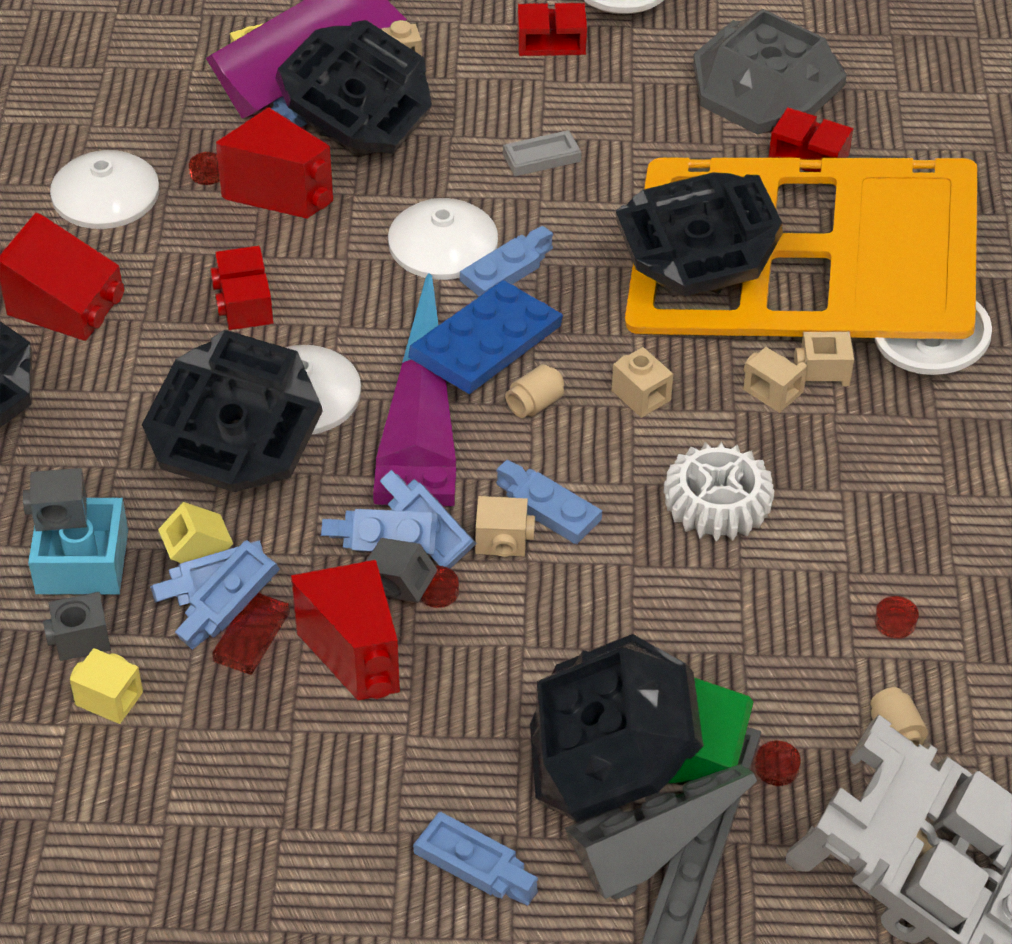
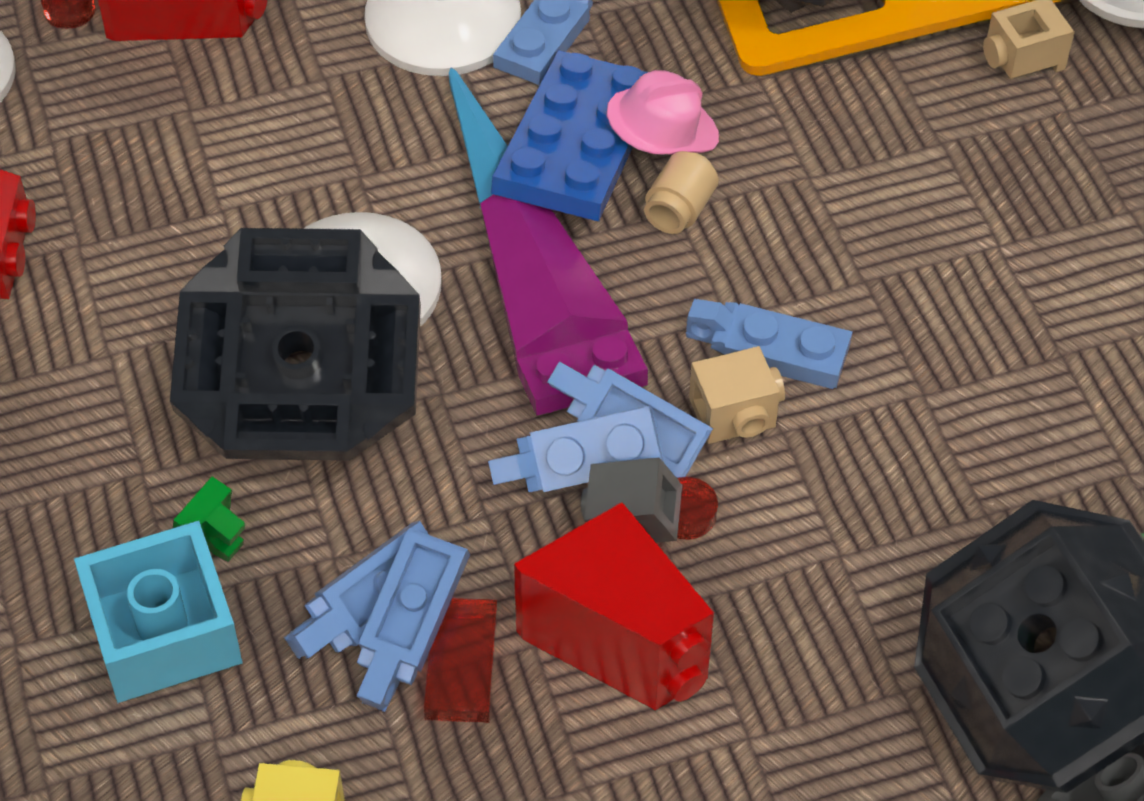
camera: 20 degrees left, 5 degrees up
(56, 499) = (111, 555): dark grey brick -> none
(77, 626) = (210, 709): dark grey brick -> none
(139, 504) = (218, 523): none -> green tile
(194, 533) = (320, 541): light yellow brick -> none
(243, 288) = (209, 168): red piece -> none
(546, 339) = (663, 115): none -> bright pink piece
(642, 382) = (812, 138): tan brick -> none
(719, 498) = (1024, 266): white gear -> none
(774, 379) = (976, 86): tan brick -> none

